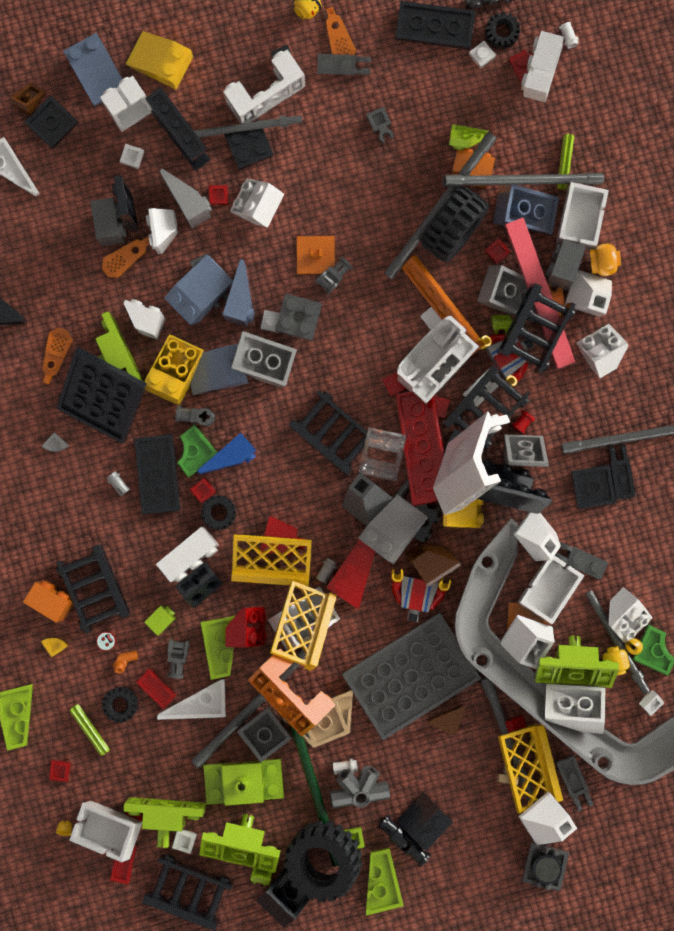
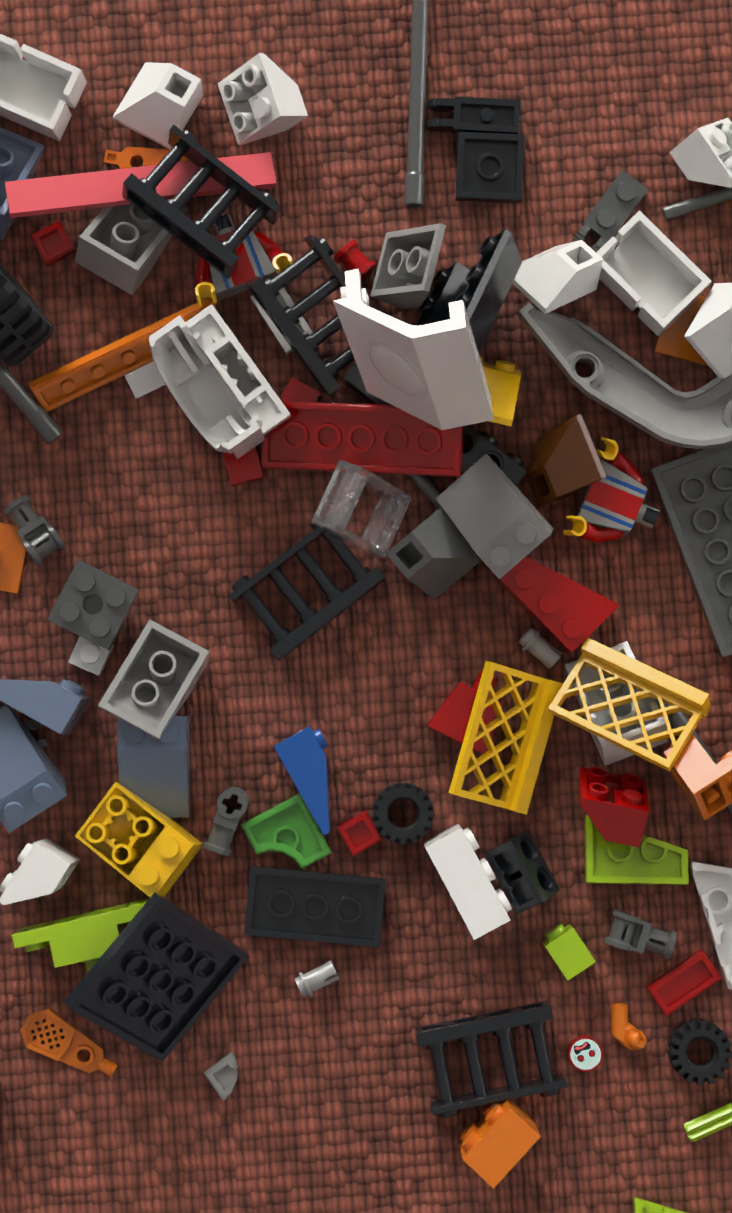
camera: 85 degrees left, 0 degrees up
(54, 645) = (574, 1146): yellow tile -> none
(501, 322) = (177, 261): lime tile -> none
(565, 264) = (101, 130): dark grey brick -> none
(605, 260) = (107, 63): light orange piece -> none

